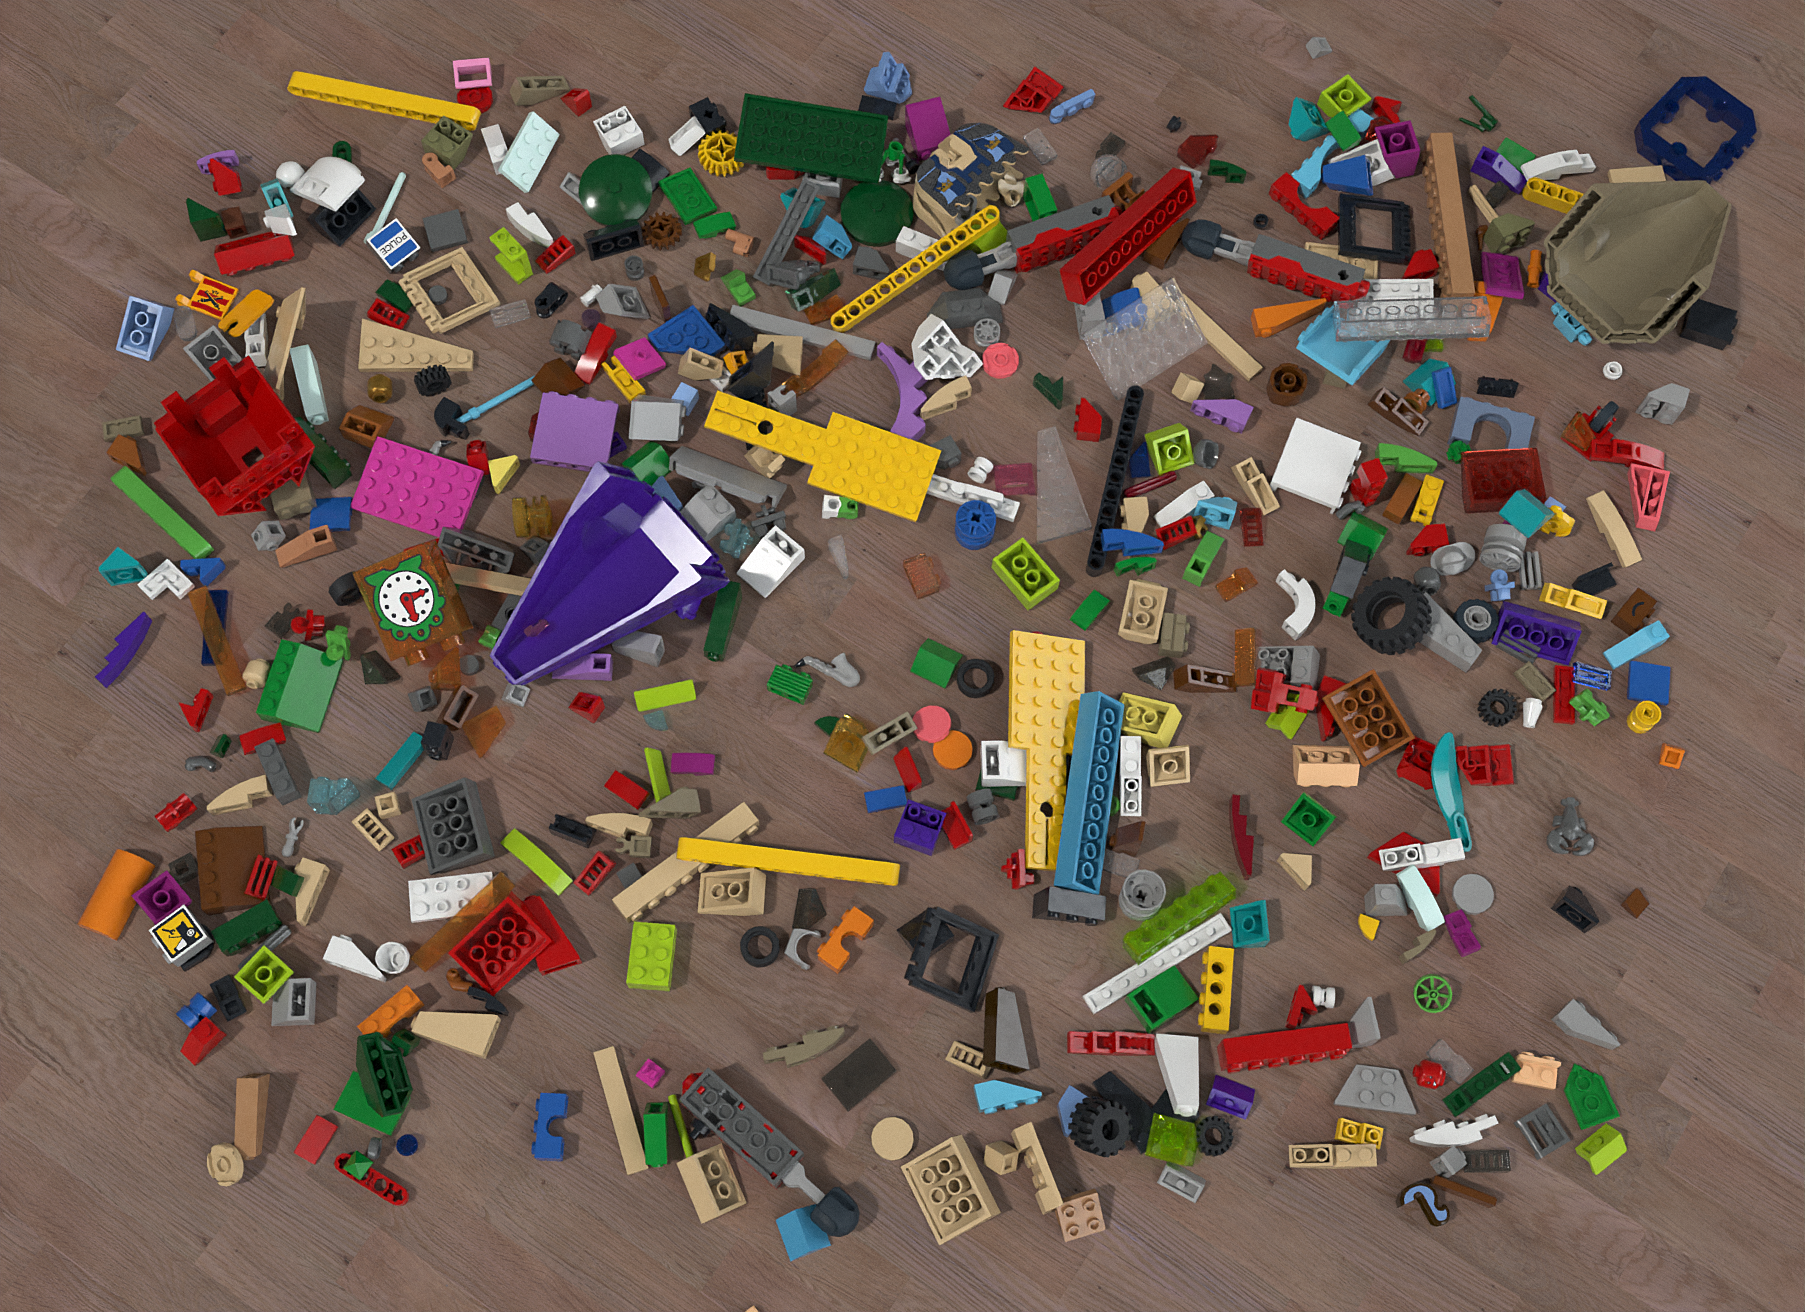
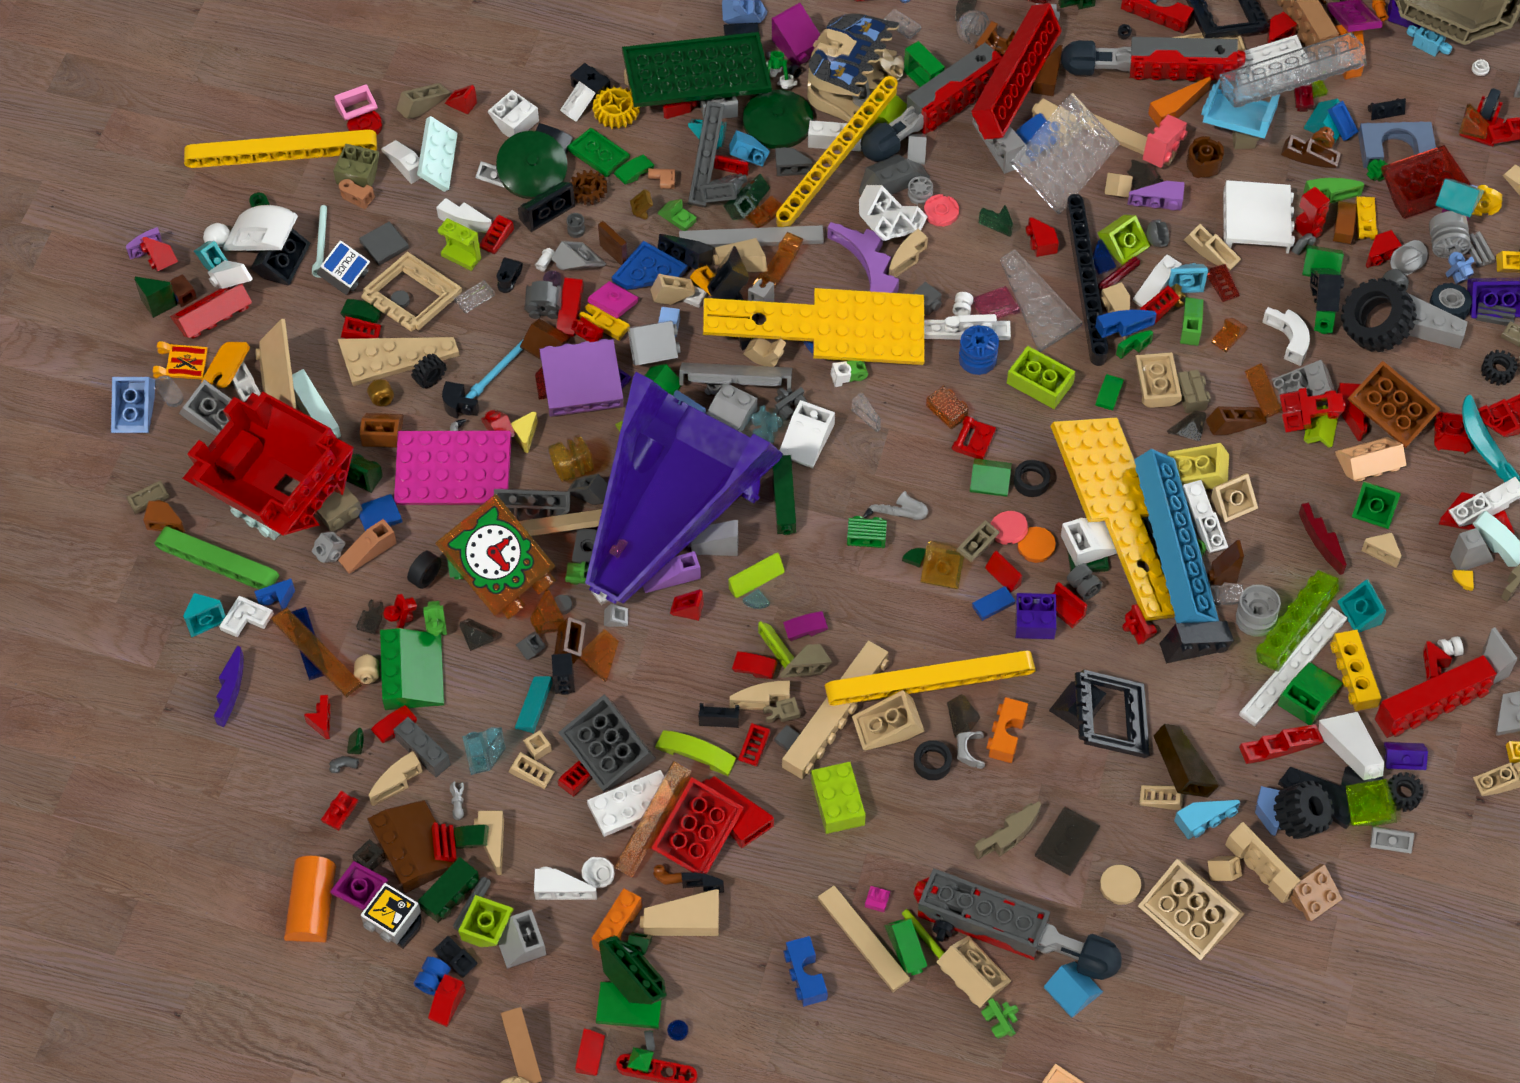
camera: 15 degrees left, 10 degrees down
(601, 384) = (587, 329): none -> red hips
(722, 1240) = (994, 1010): none -> bright green hips
(940, 621) = (980, 439): none -> red plate
(1251, 355) = (1164, 141): none -> coral wedge

